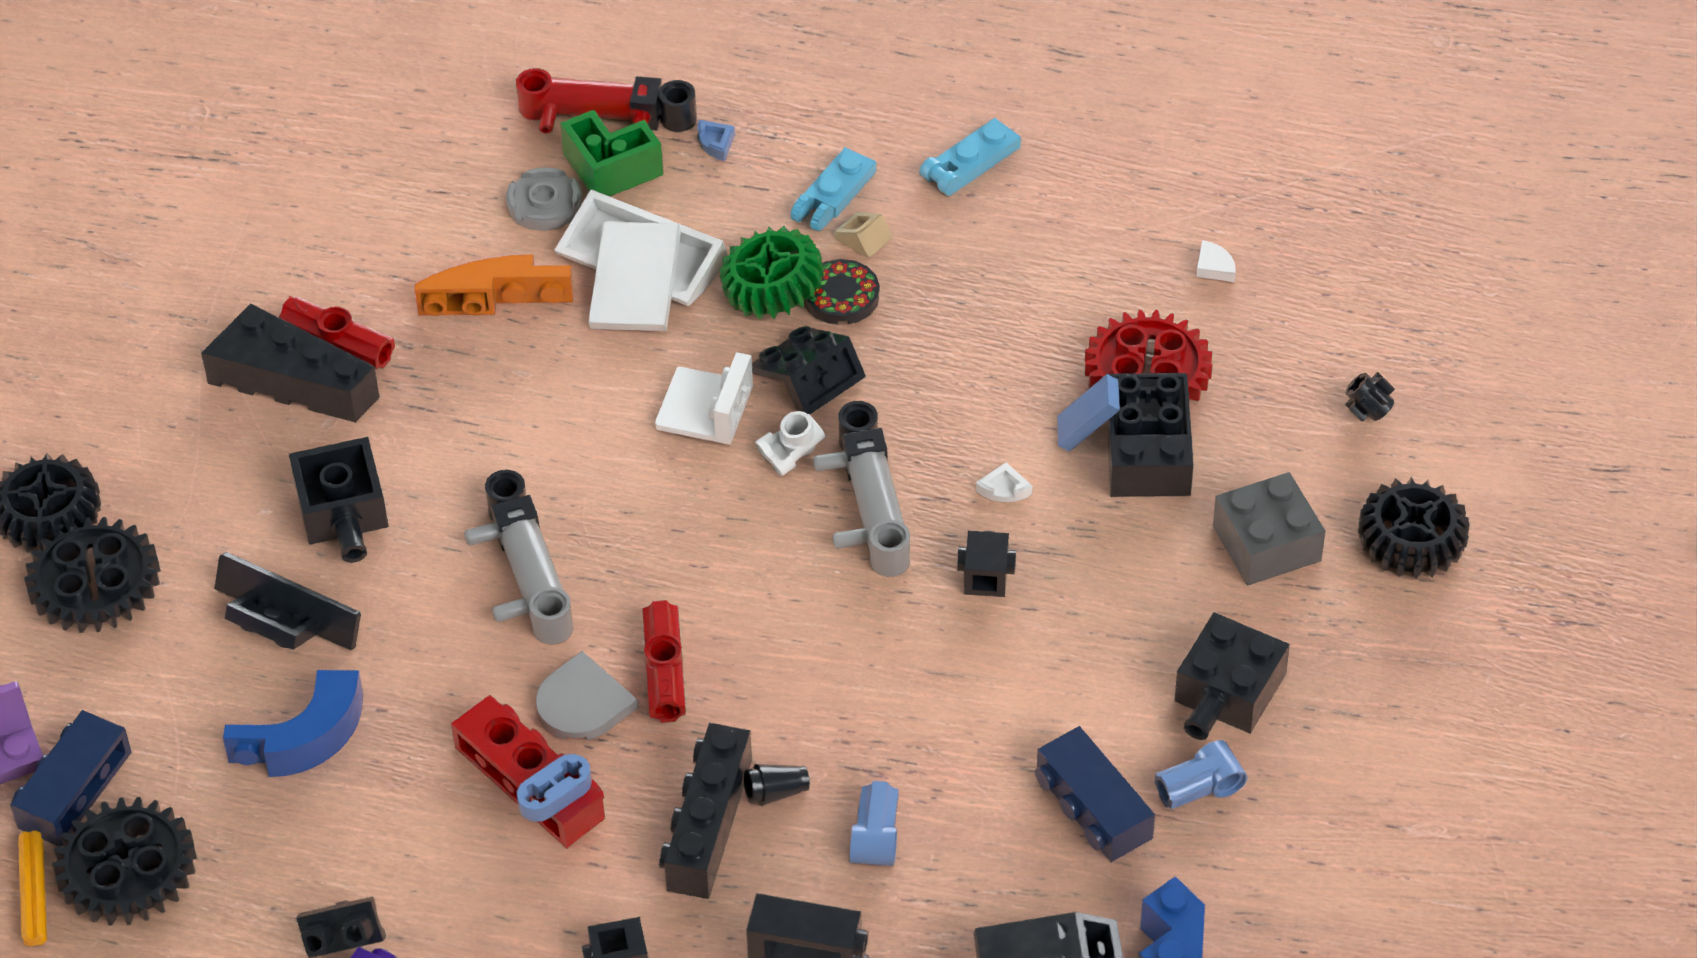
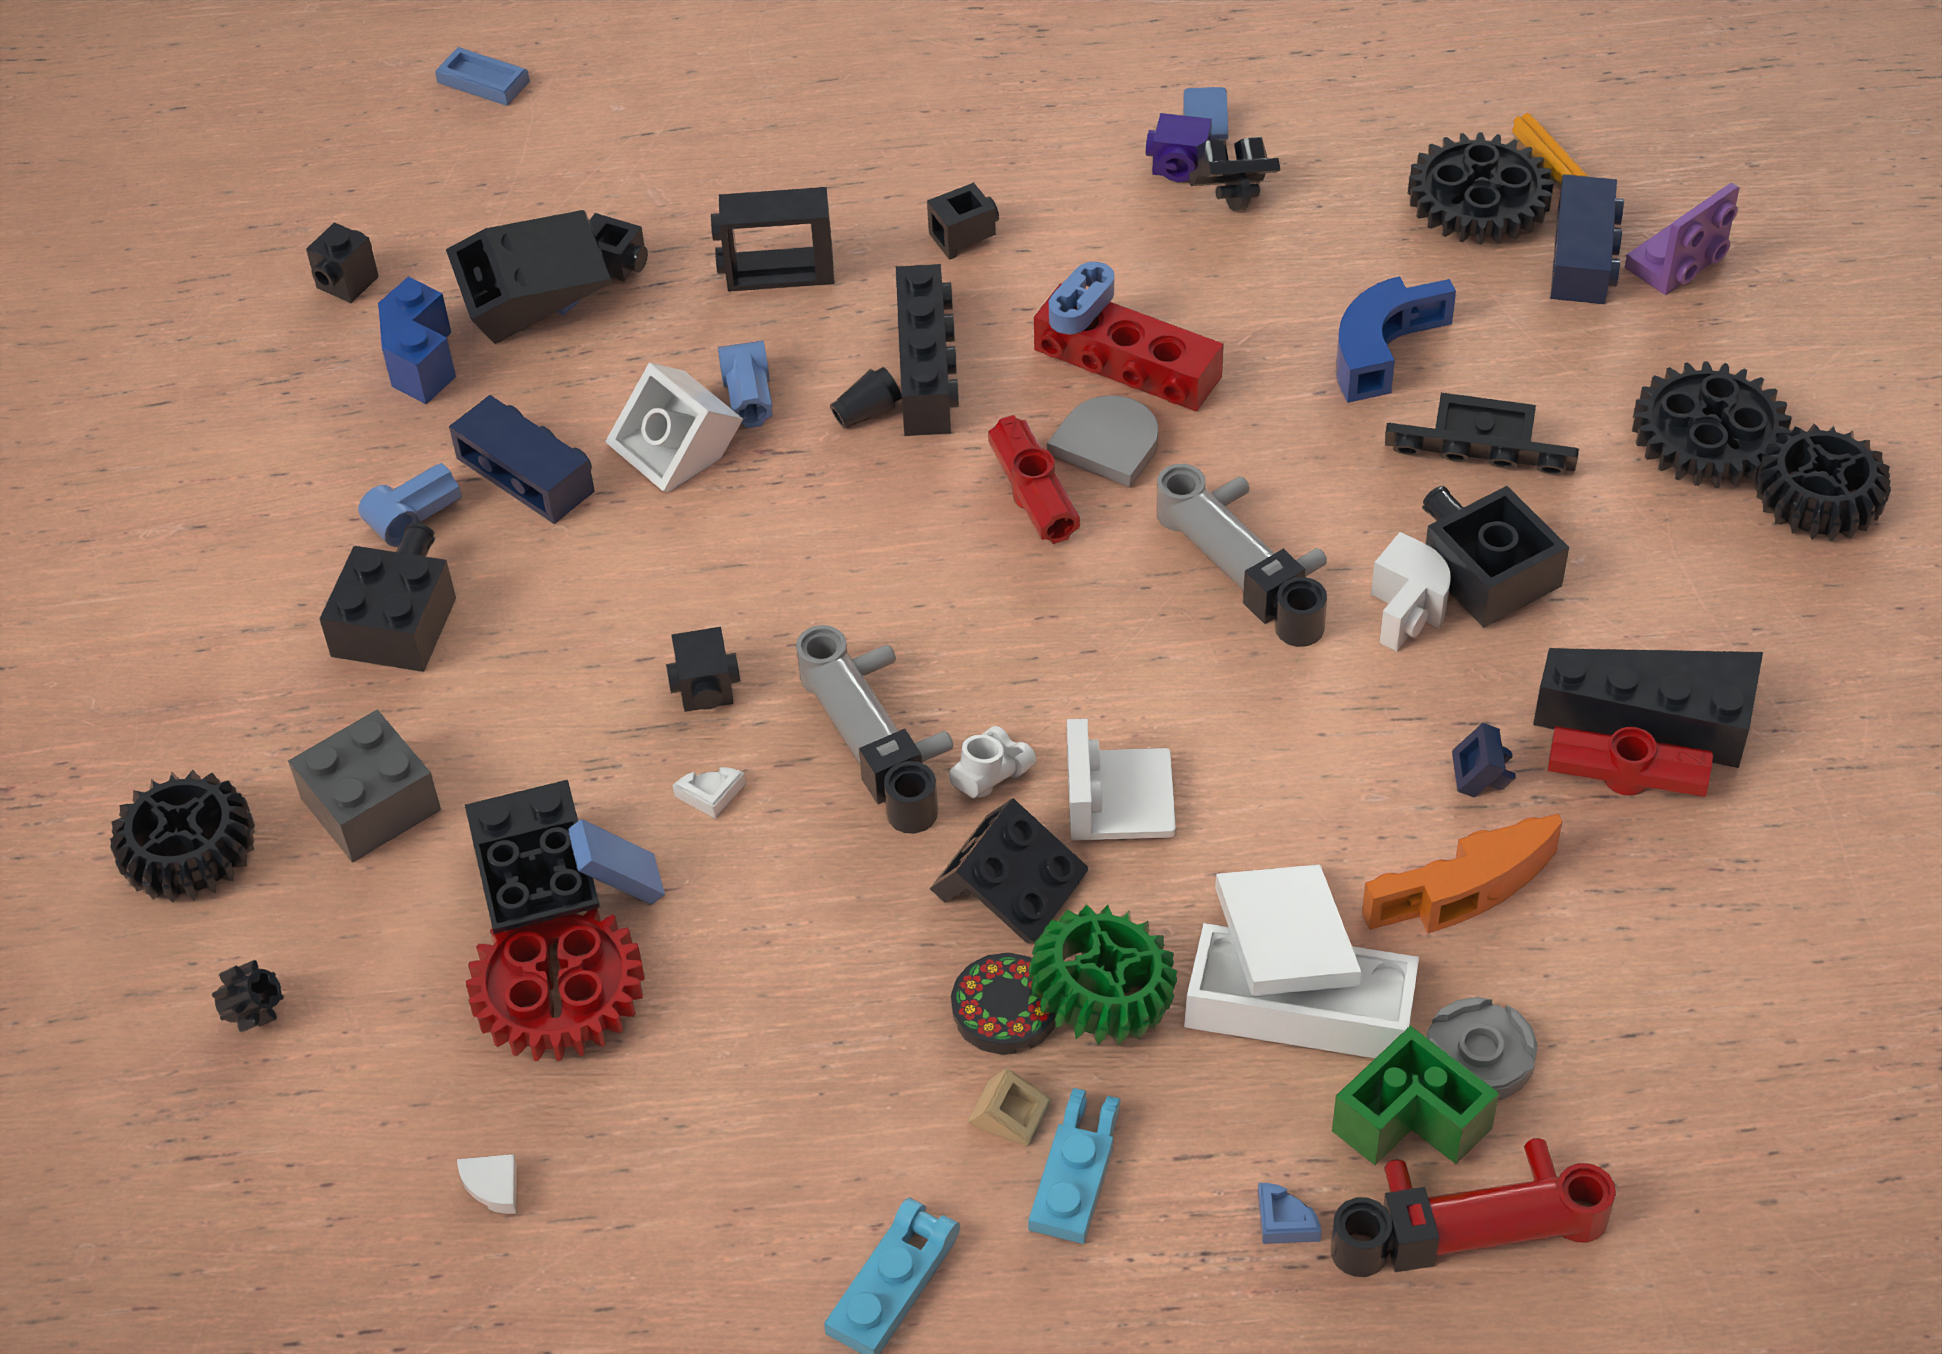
camera: 165 degrees right, 0 degrees up
(411, 493) = (1414, 585): none -> white brick
(438, 358) = (1481, 761): none -> dark blue tile
(951, 790) = (672, 427): none -> white slope

